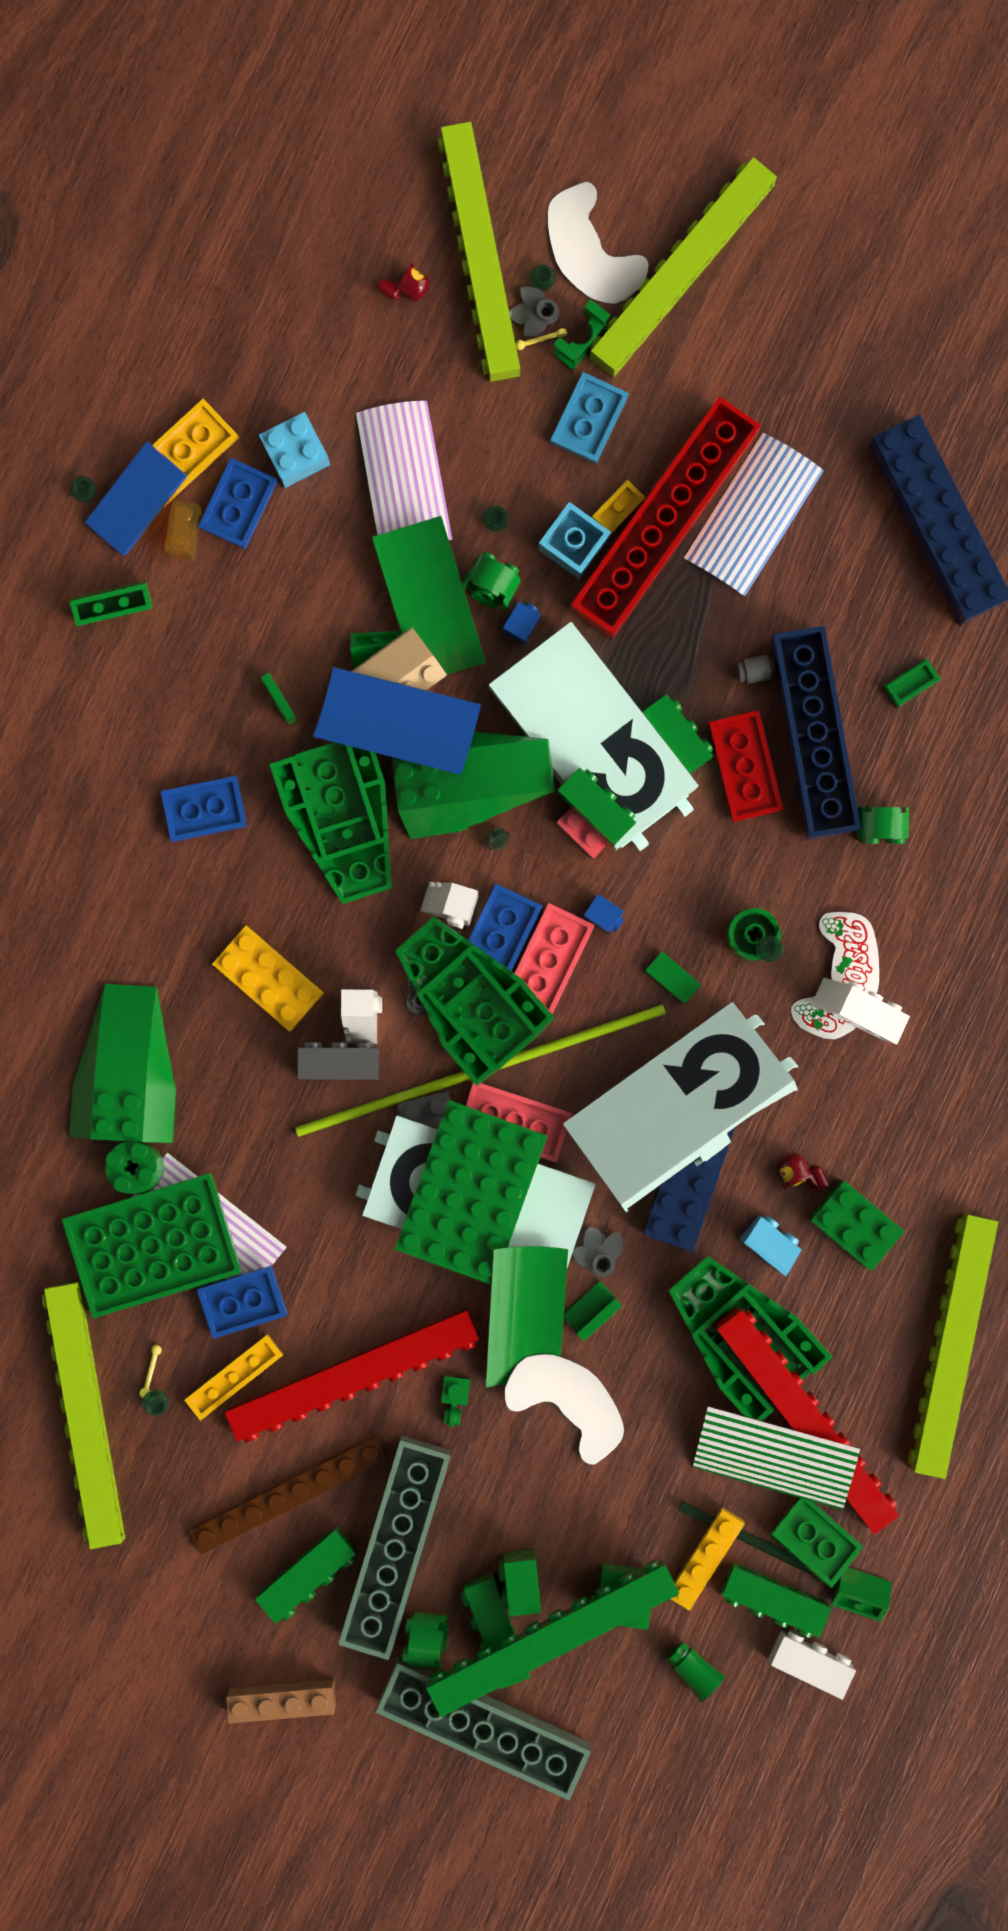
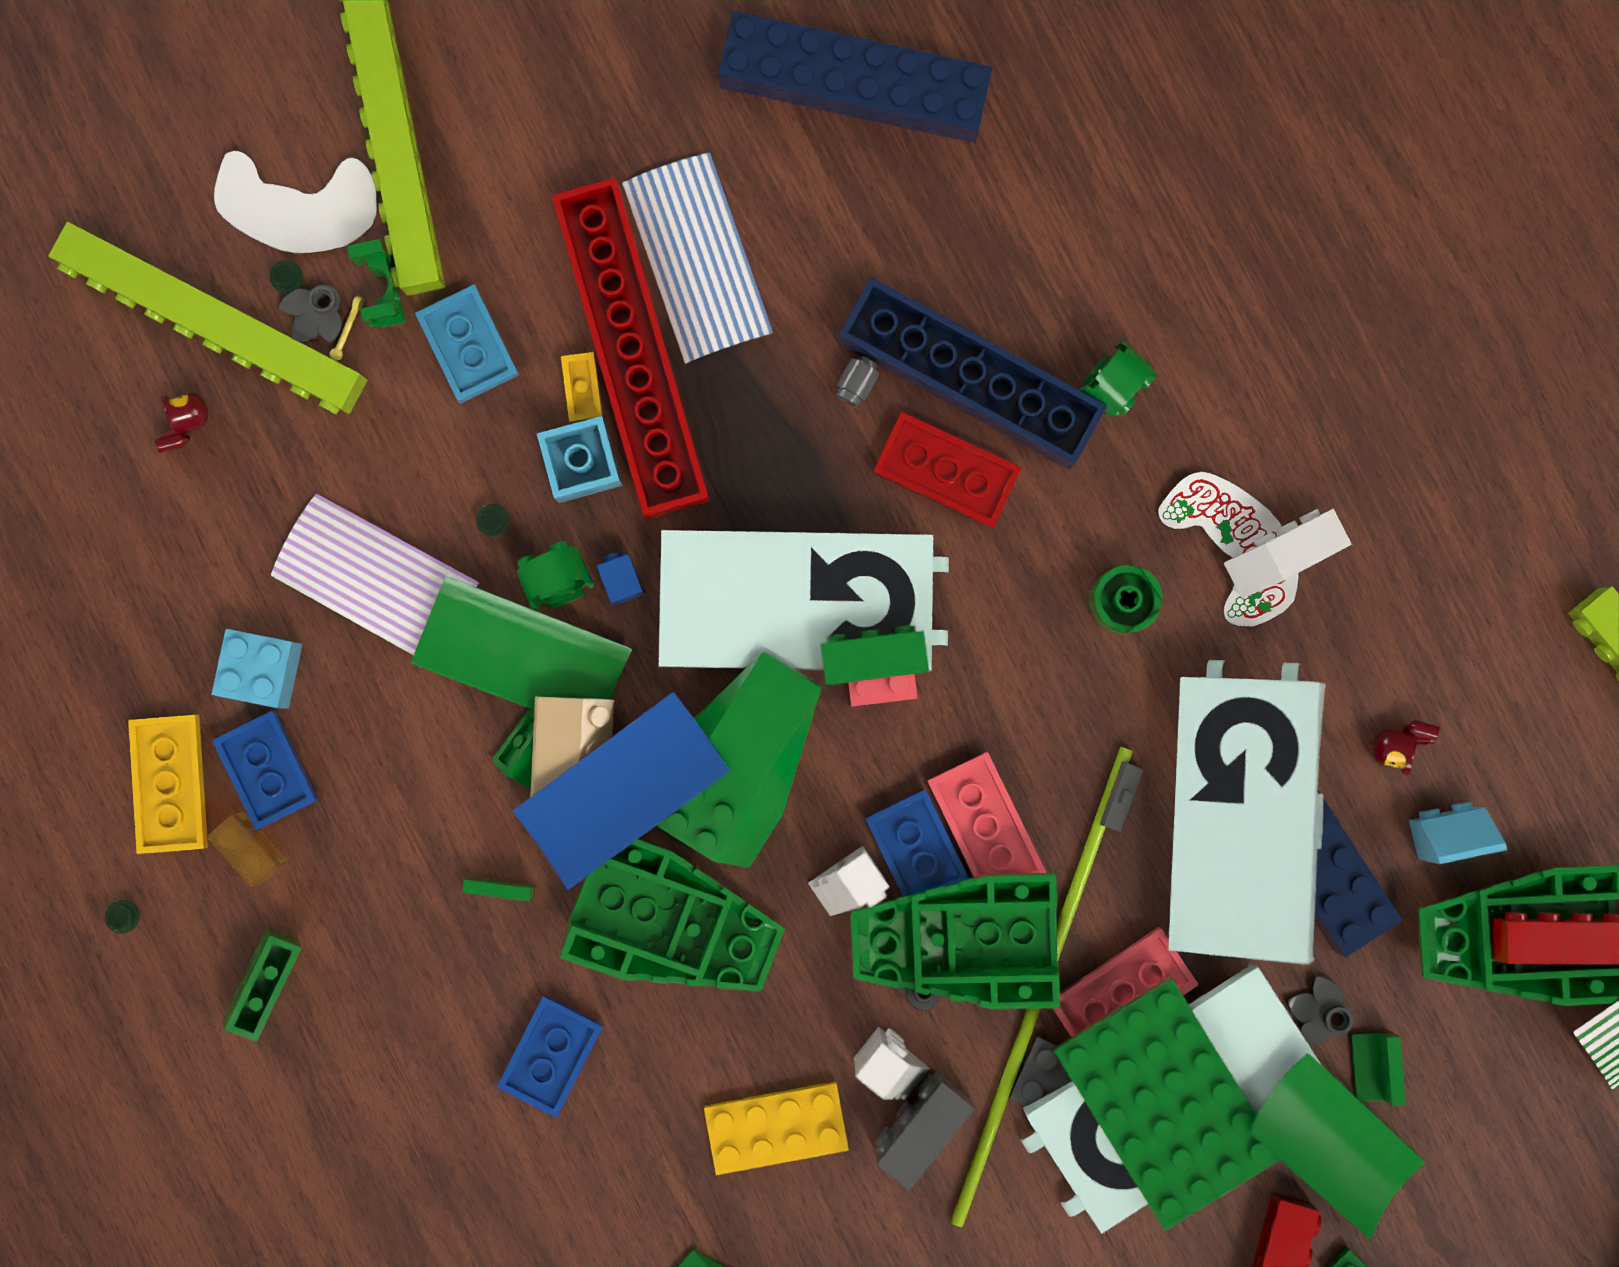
camera: 45 degrees left, 0 degrees up
(136, 498) = (175, 871): blue tile -> none
(497, 839) = (821, 780): clear green plate -> none
(576, 1394) = (1454, 1153): white sticker -> none
(604, 915) = (984, 733): blue brick -> none
(632, 1028) = (1121, 796): none -> dark grey piece
(673, 977) = (1102, 714): green tile -> none
(679, 733) = (861, 511): green brick -> none
(769, 949) = (1157, 596): clear green plate -> none
(855, 1225) = (1500, 731): green brick -> none
(911, 683) = (995, 236): green tile -> none

